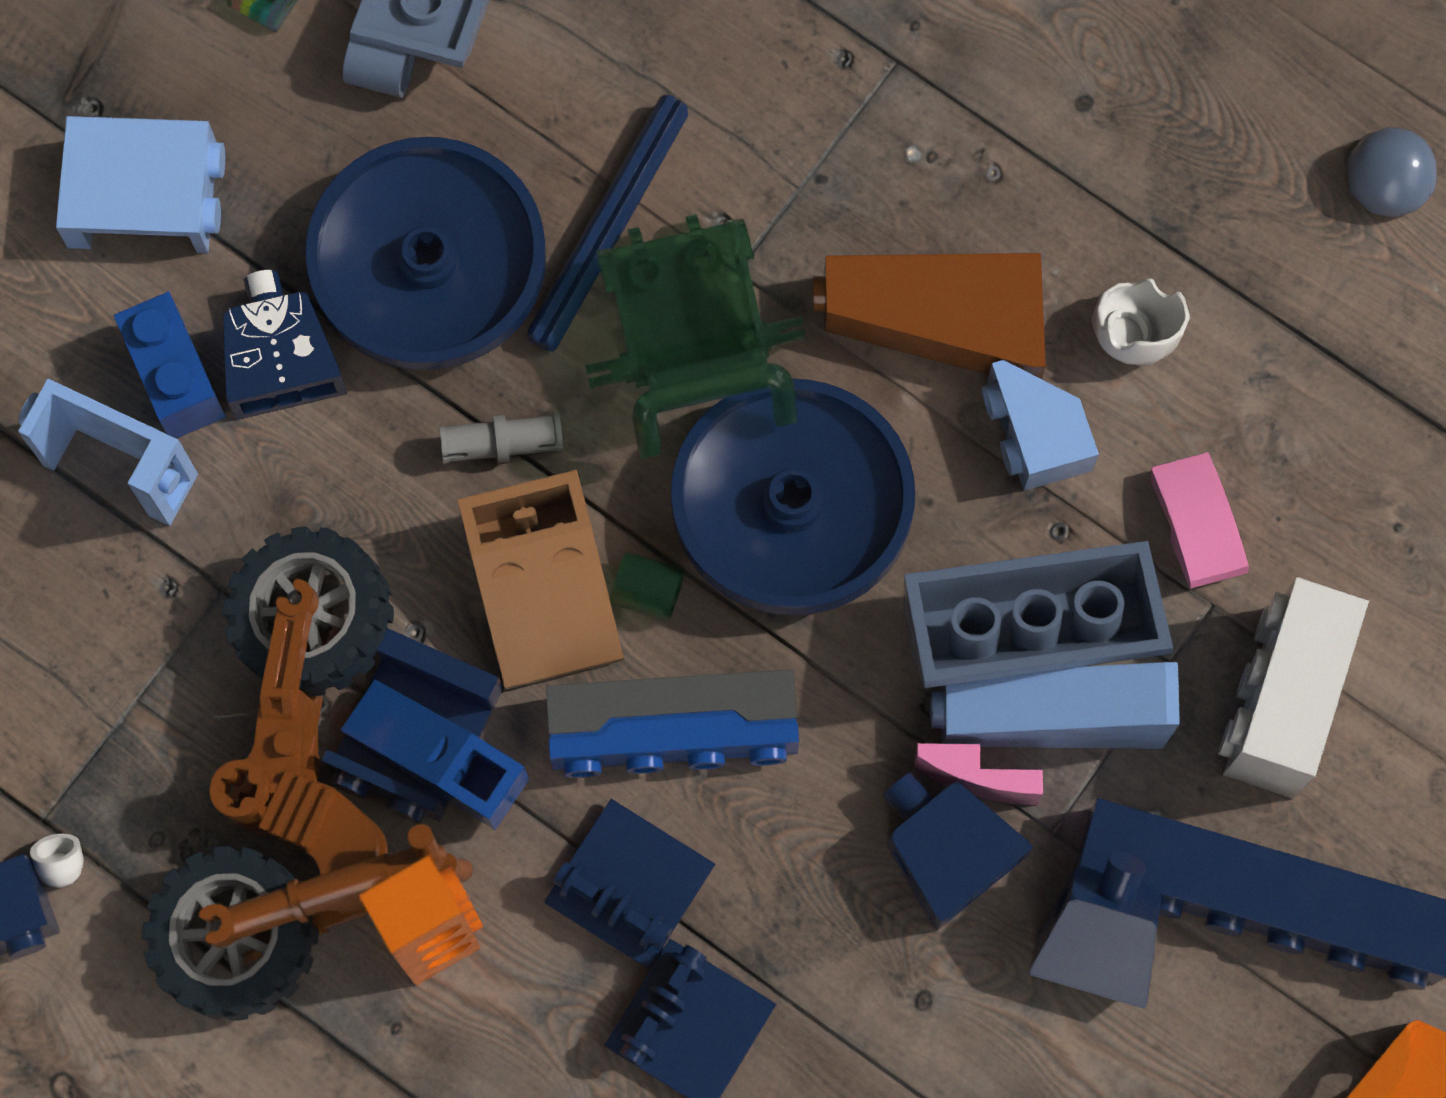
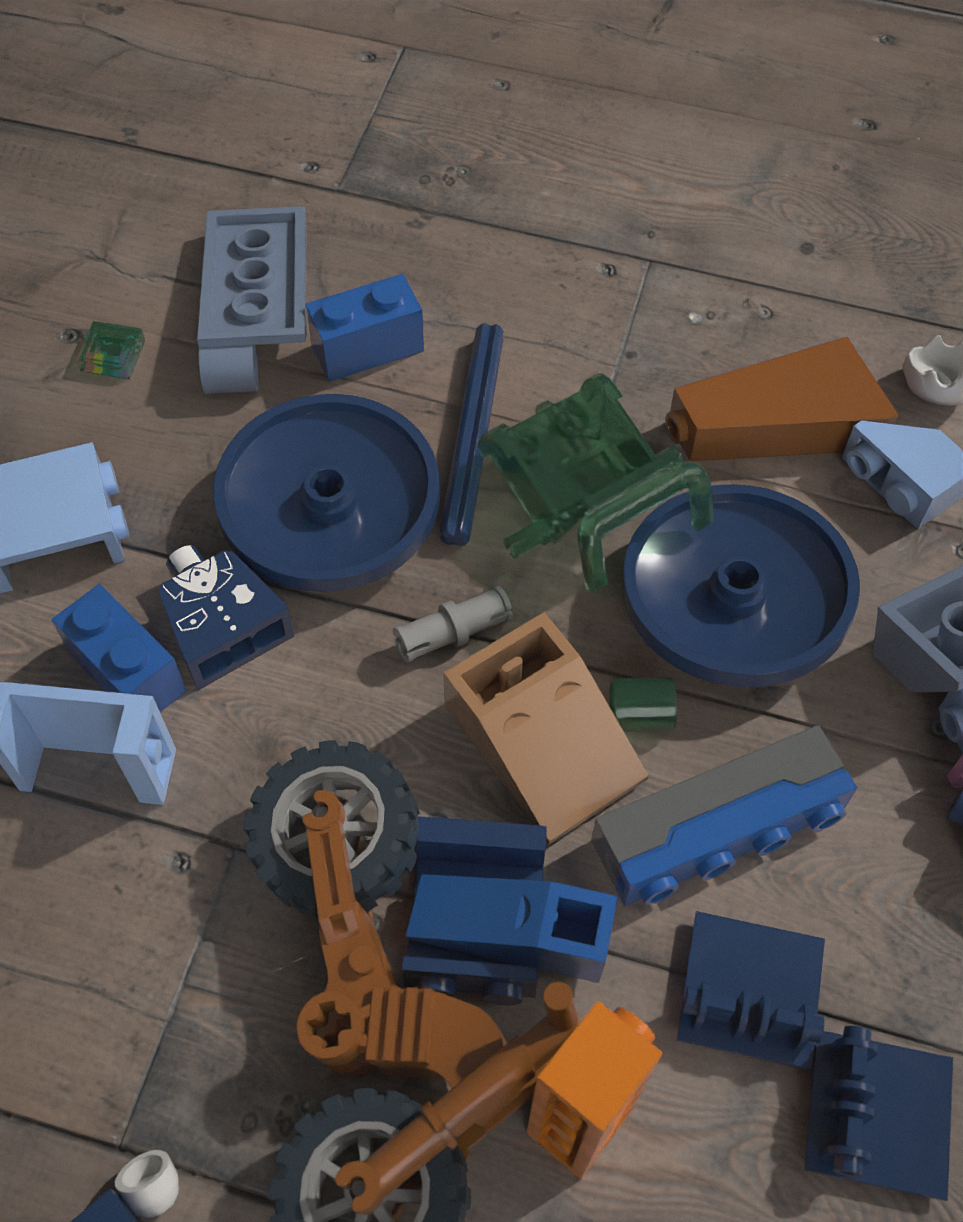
camera: 20 degrees left, 15 degrees down
(537, 61) = (365, 327): none -> blue brick

